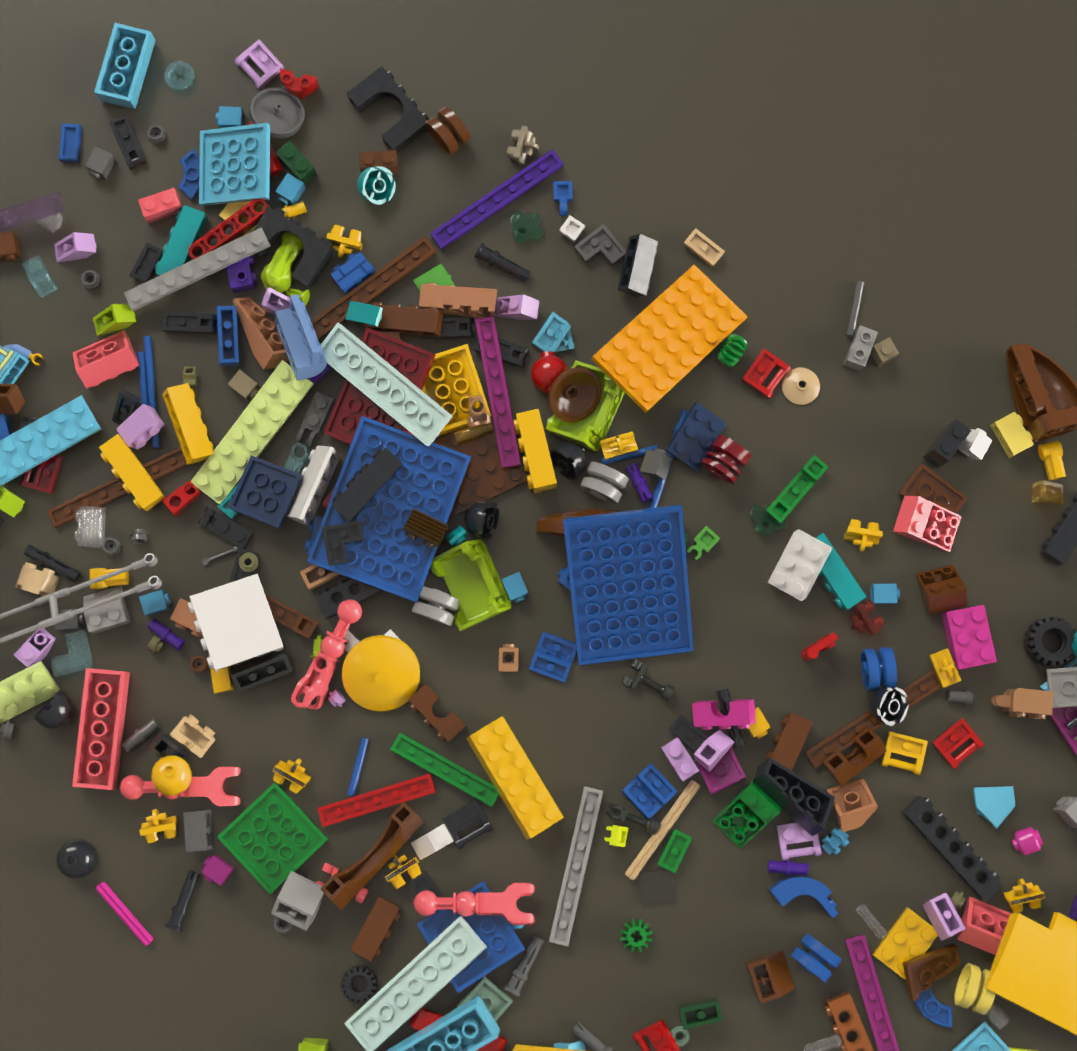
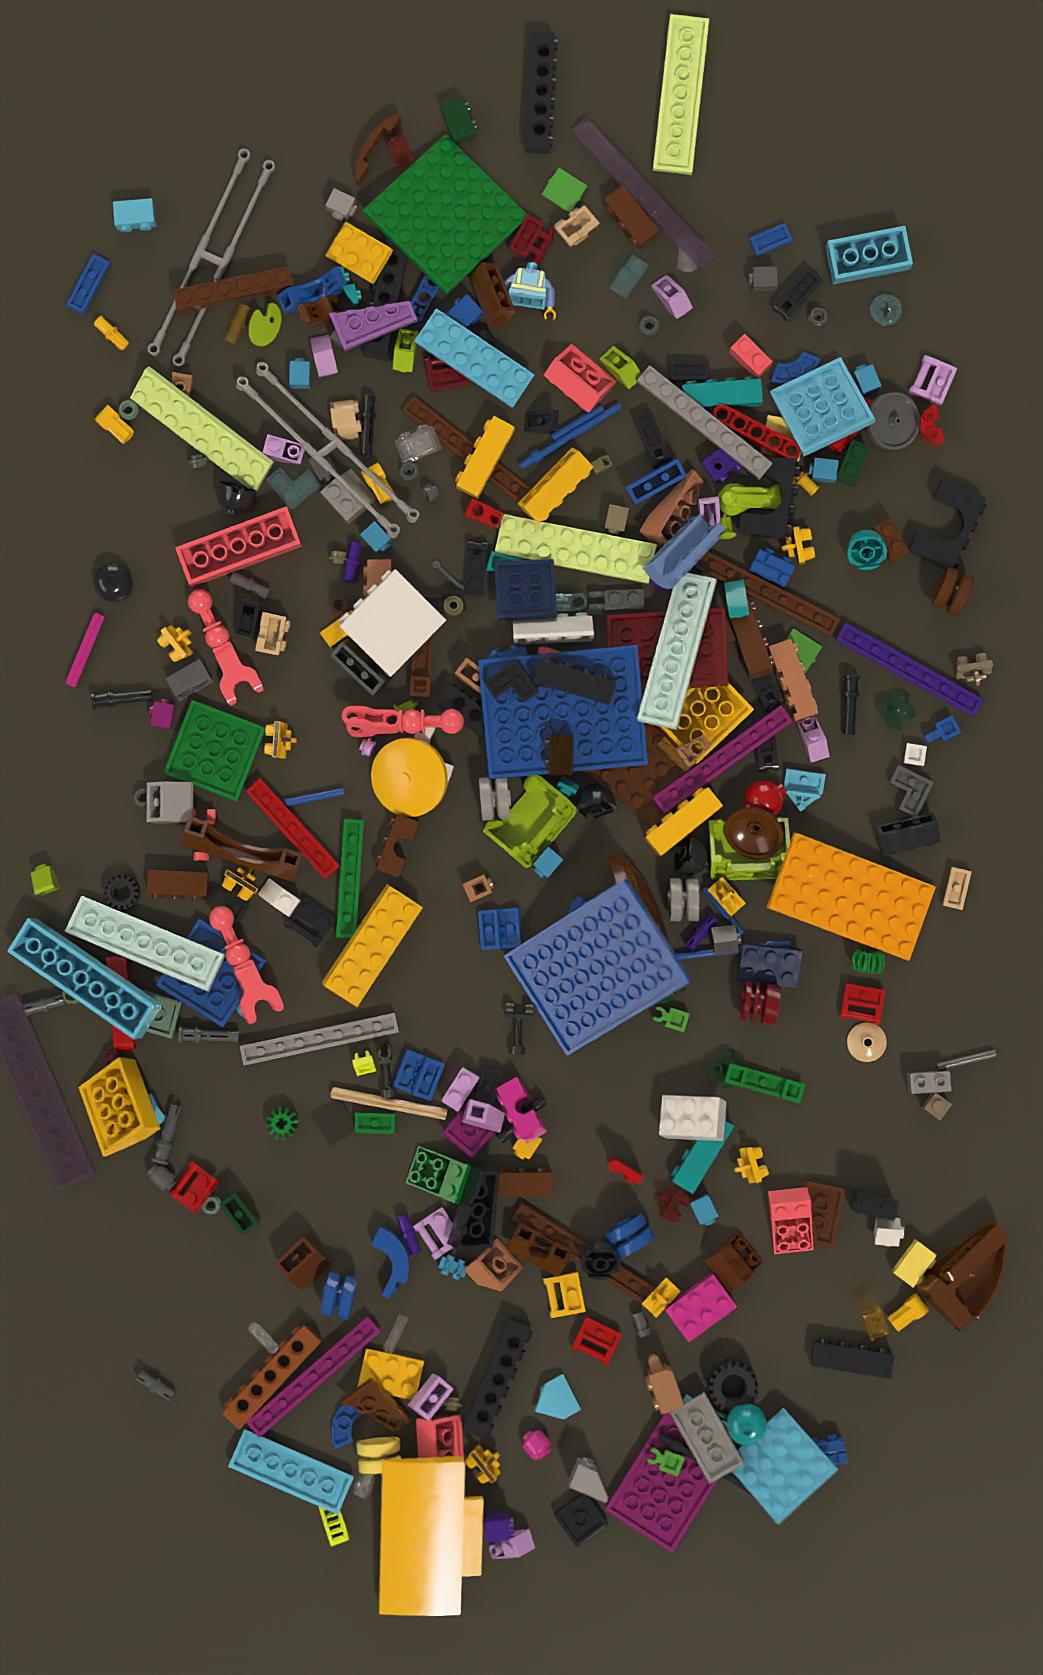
camera: 70 degrees right, 5 degrees up
(140, 426) = (531, 443): lavender brick -> none
(171, 775) = (227, 632): yellow cylinder -> none

